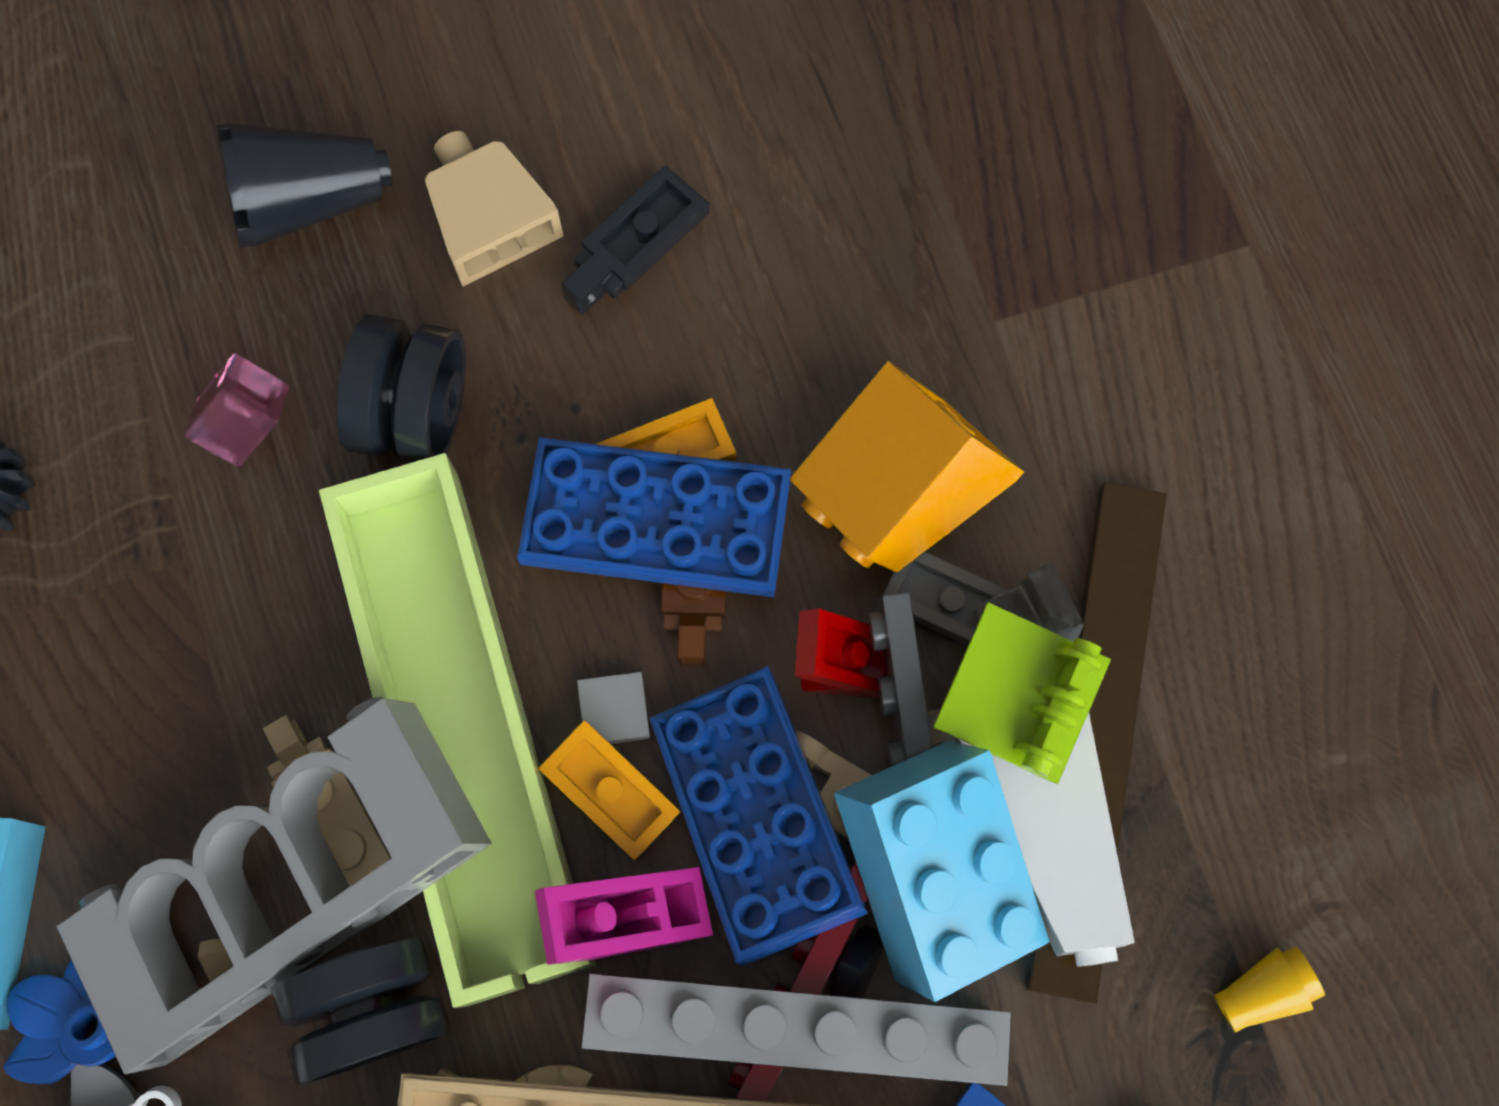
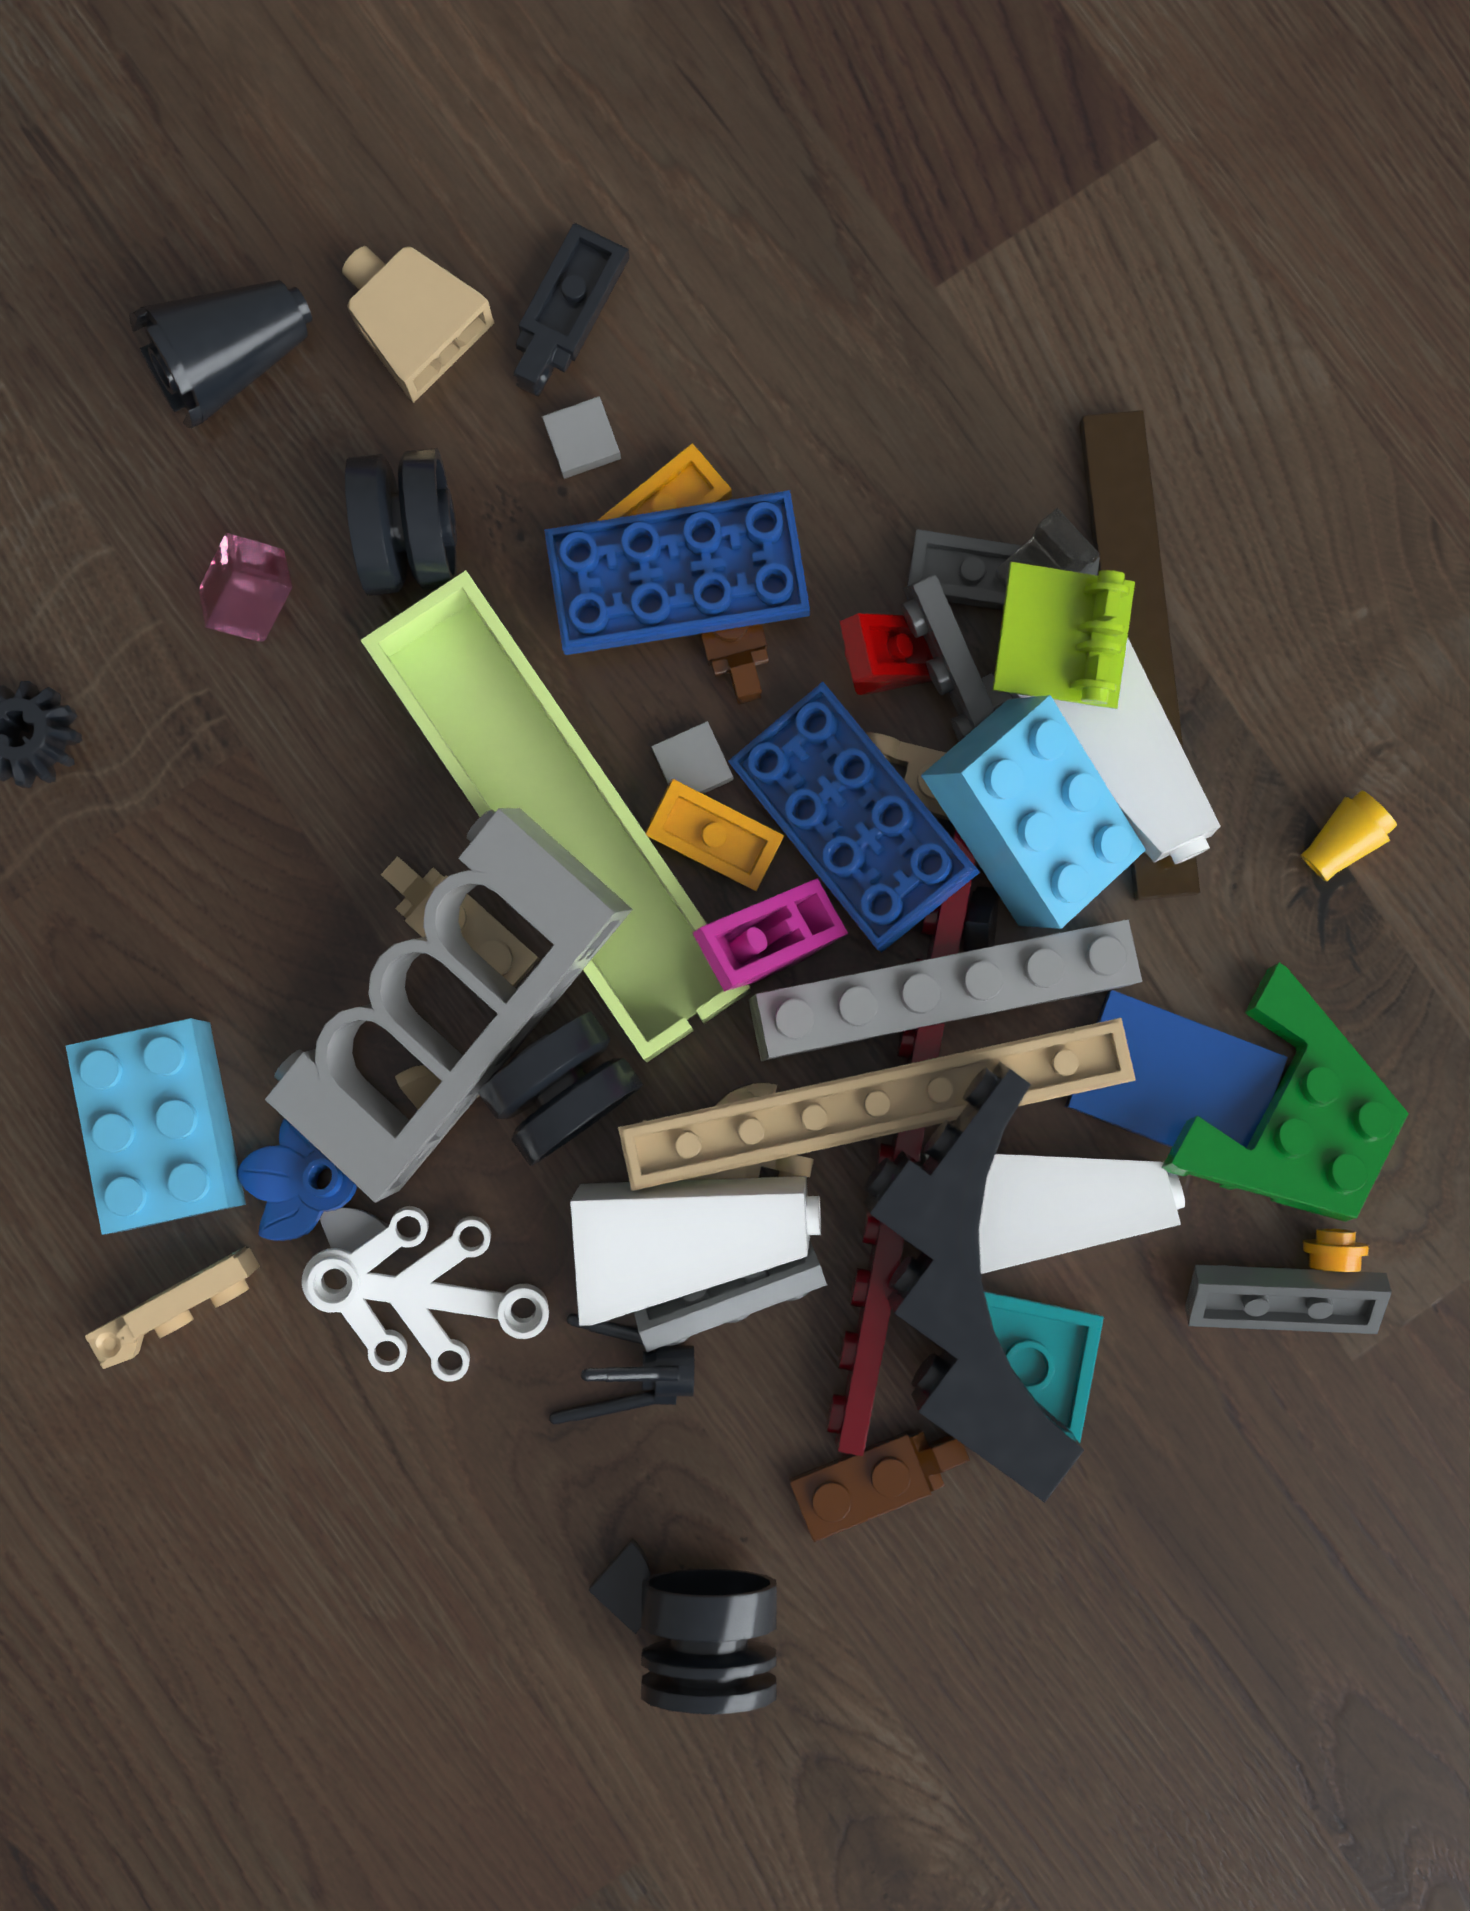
camera: 15 degrees left, 10 degrees up
(609, 363) = (581, 437): none -> light grey tile
(900, 472) = (892, 462): light orange slope -> none

